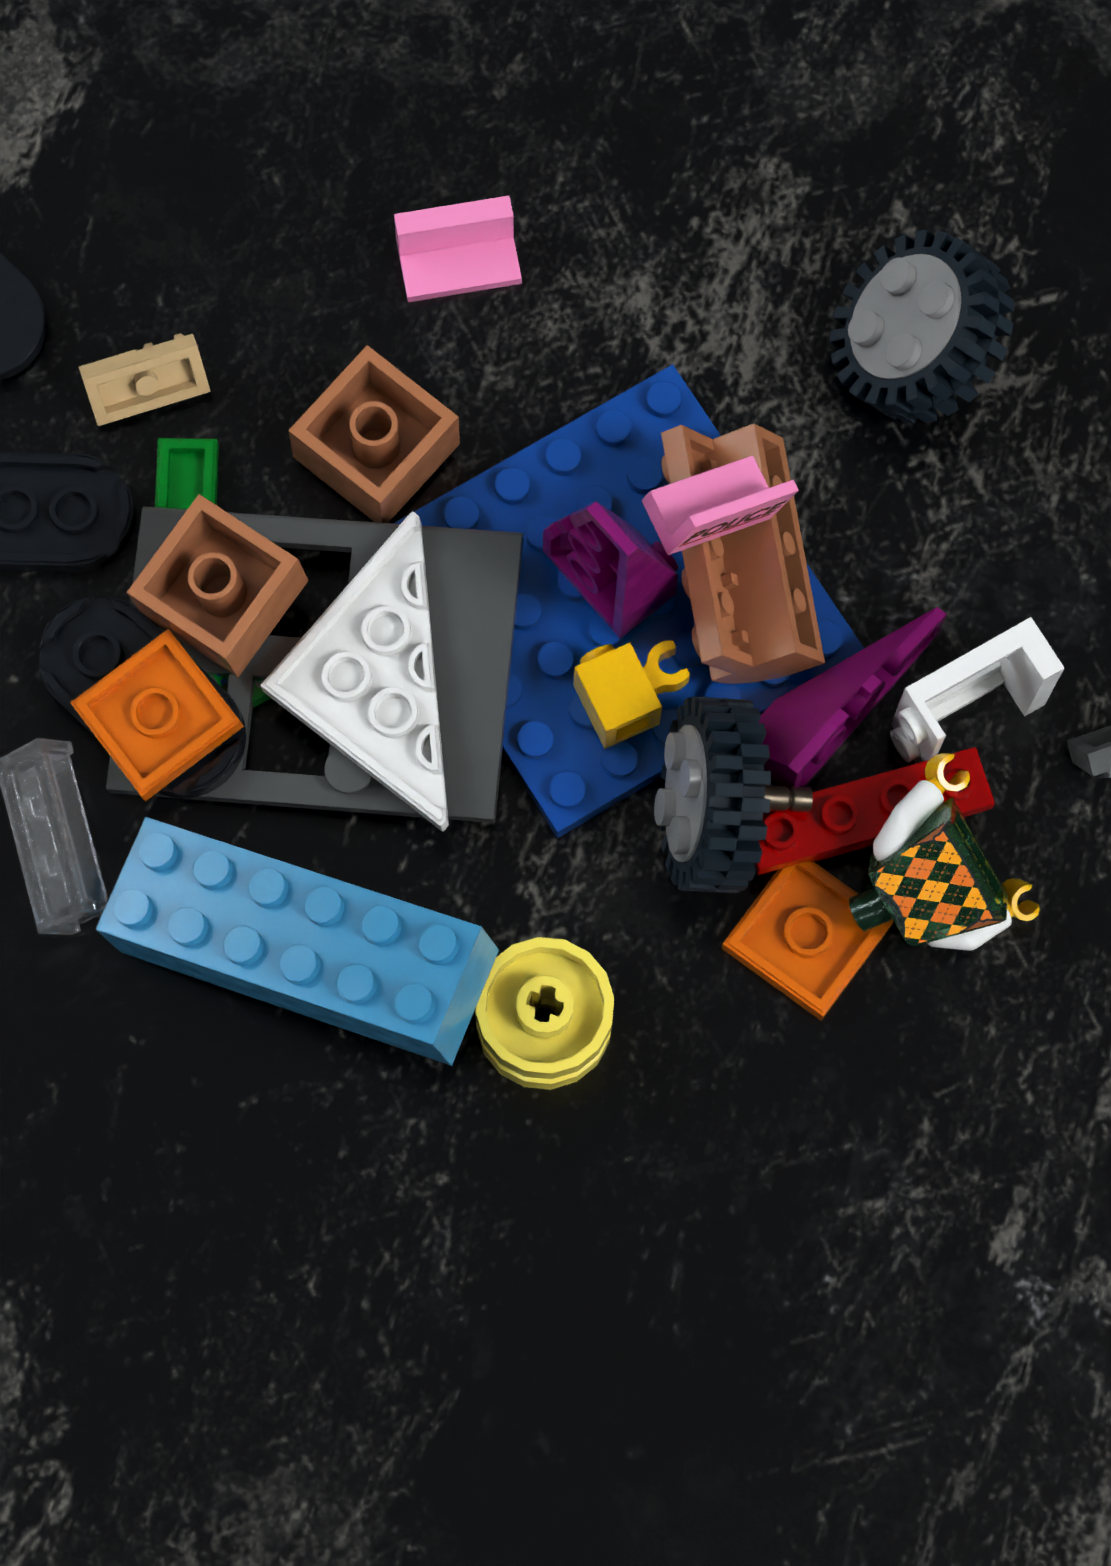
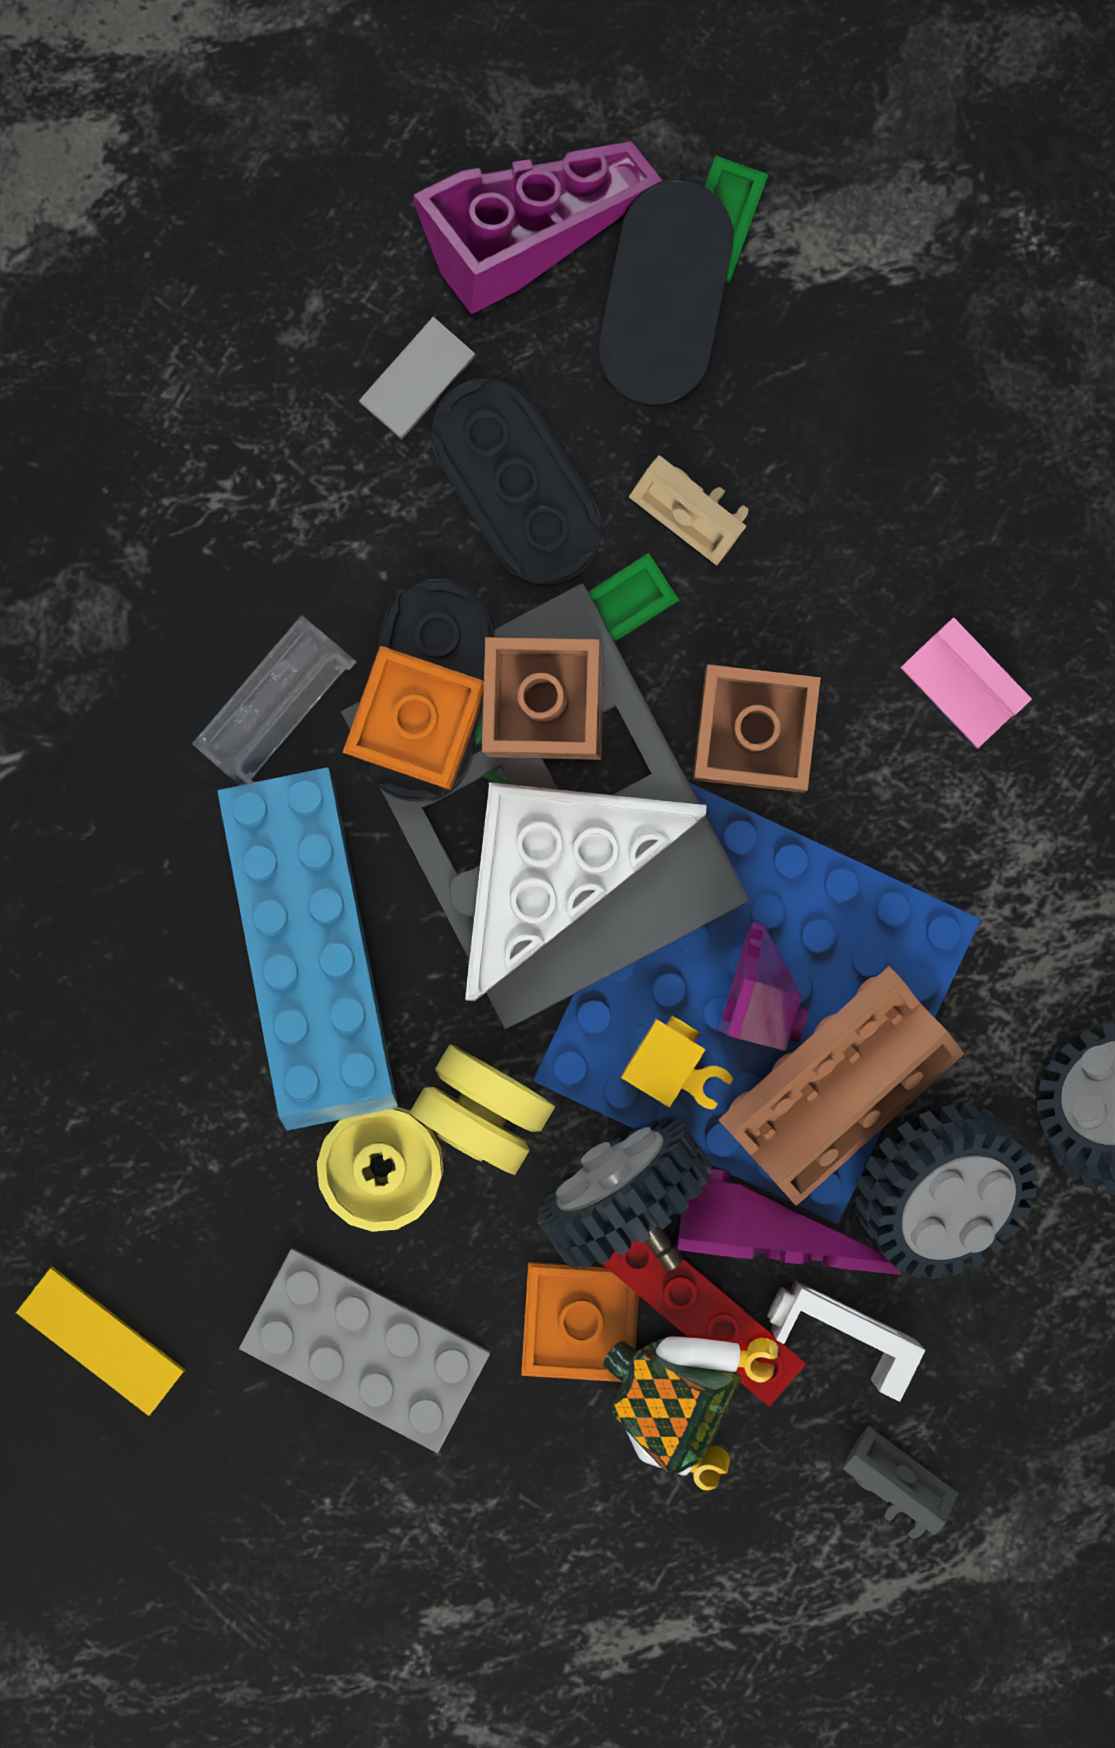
camera: 60 degrees right, 15 degrees up
(535, 1392) = (100, 1341): none -> yellow tile
(552, 878) = (478, 1116): none -> light yellow wheel
(706, 1147) = (364, 1350): none -> light grey plate
(714, 504) = (848, 1051): bright pink panel -> none
(896, 523) = (946, 1191): none -> wheel

